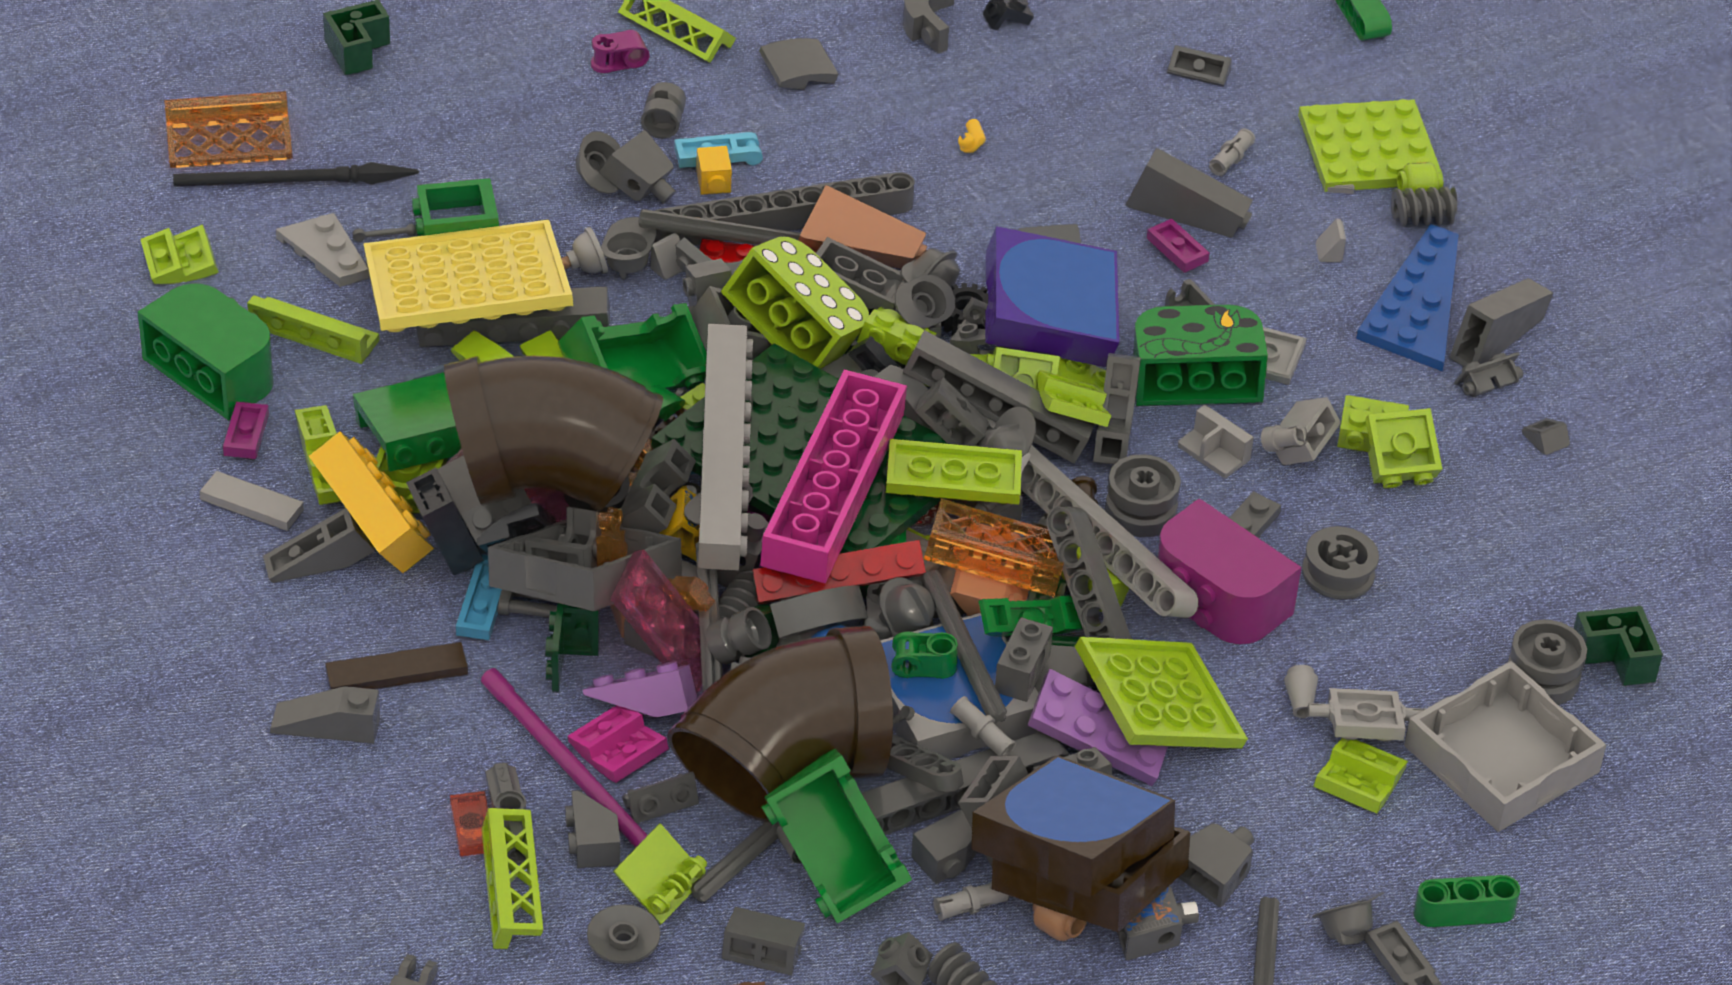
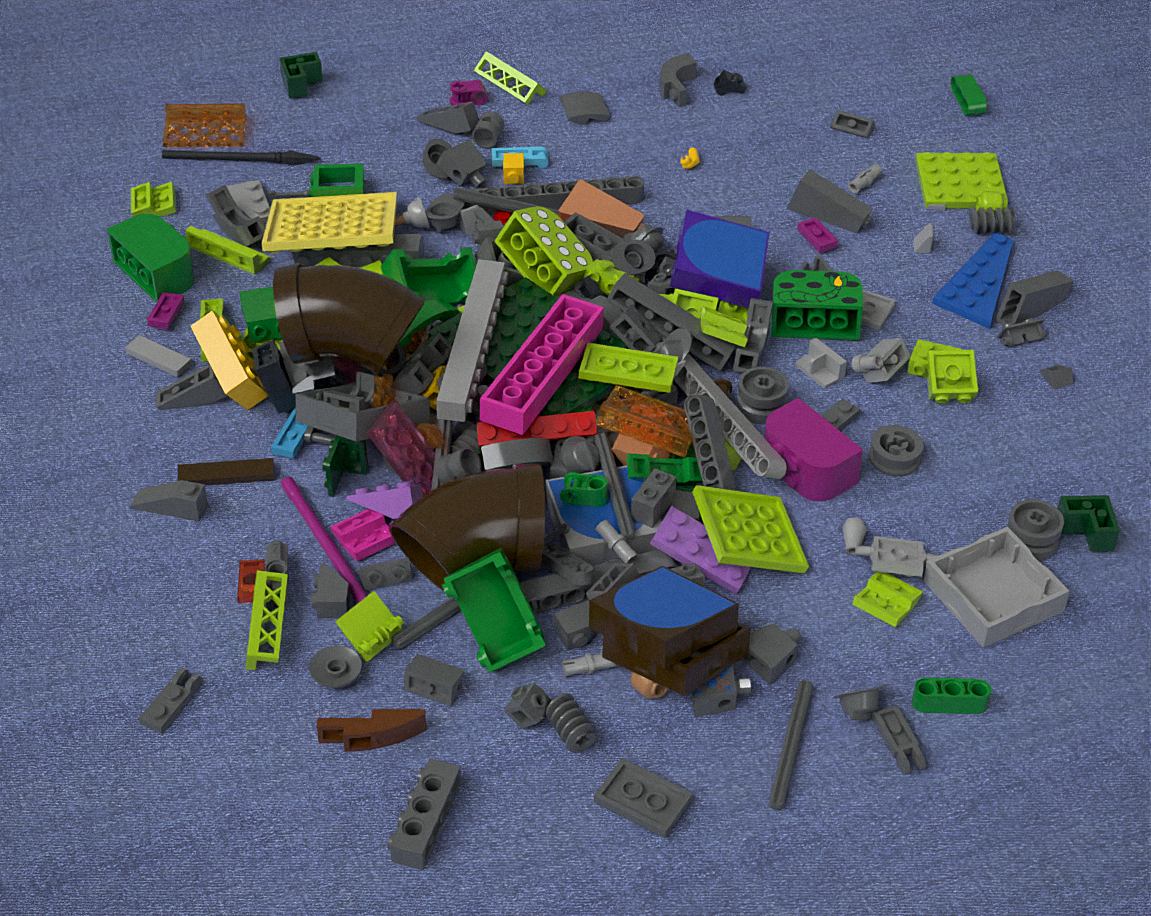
camera: 10 degrees right, 0 degrees up
(315, 285) = (232, 220): none -> dark grey arch
(605, 94) = (452, 118): none -> dark grey slope

